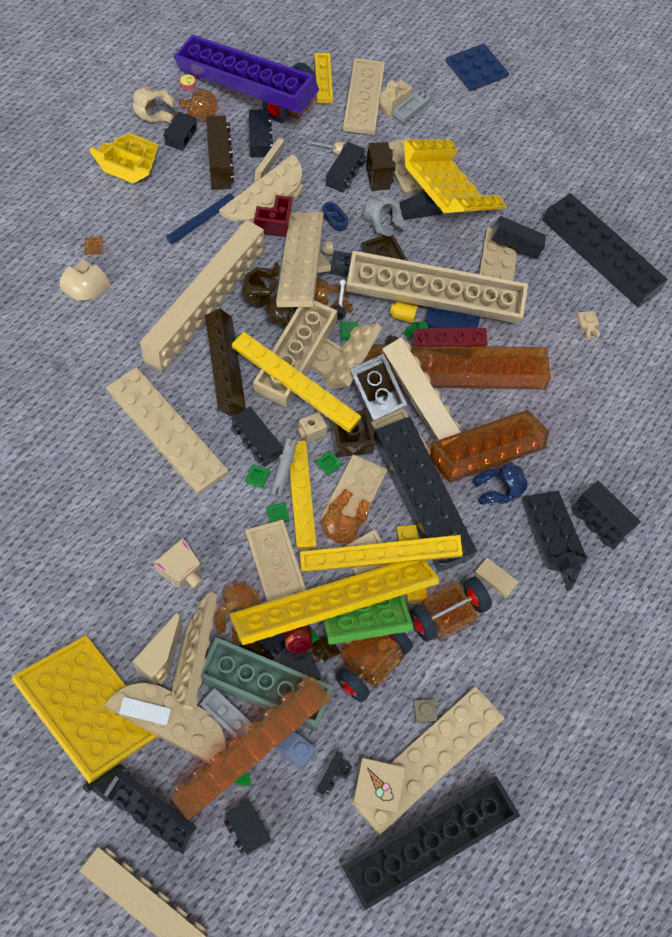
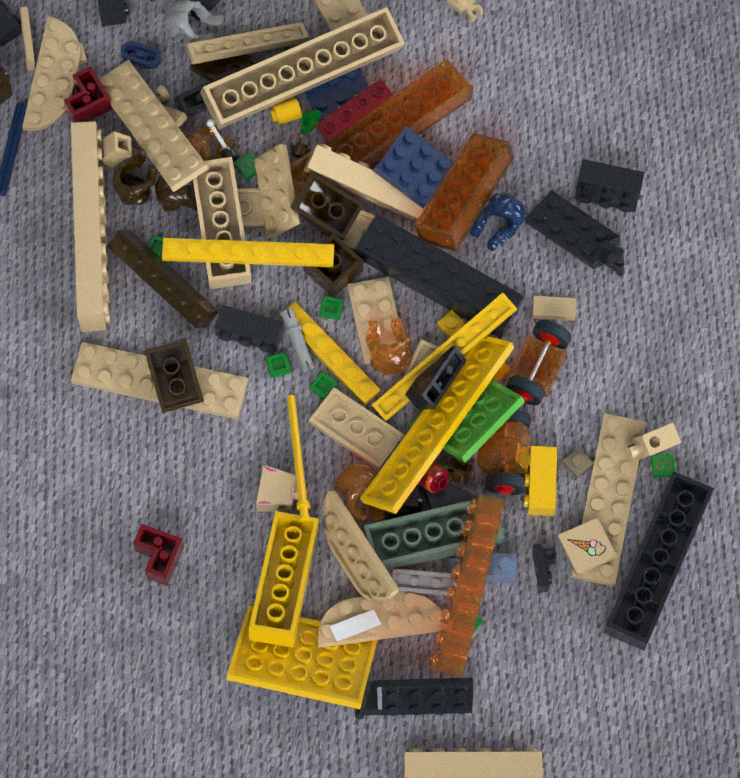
camera: 30 degrees left, 5 degrees up
(58, 551) = (164, 552): none -> dark red brick
(120, 635) = (283, 580): none -> yellow brick
(158, 656) = (329, 581): tan slope -> none
(174, 429) = (174, 375): none -> dark brown slope
(184, 588) = (302, 504): none -> yellow bar
(247, 828) = (507, 655): black brick -> none
(265, 257) = (117, 149): none -> tan brick
(312, 428) = (292, 285): tan brick -> none
(359, 565) = (435, 380): none -> black slope
(384, 704) = (541, 481): none -> yellow brick
(408, 248) = (247, 43): none -> tan plate
(463, 402) = (414, 167): none -> dark blue plate
(493, 763) = (662, 465): none -> green tile
(496, 738) = (653, 442): none -> tan torso

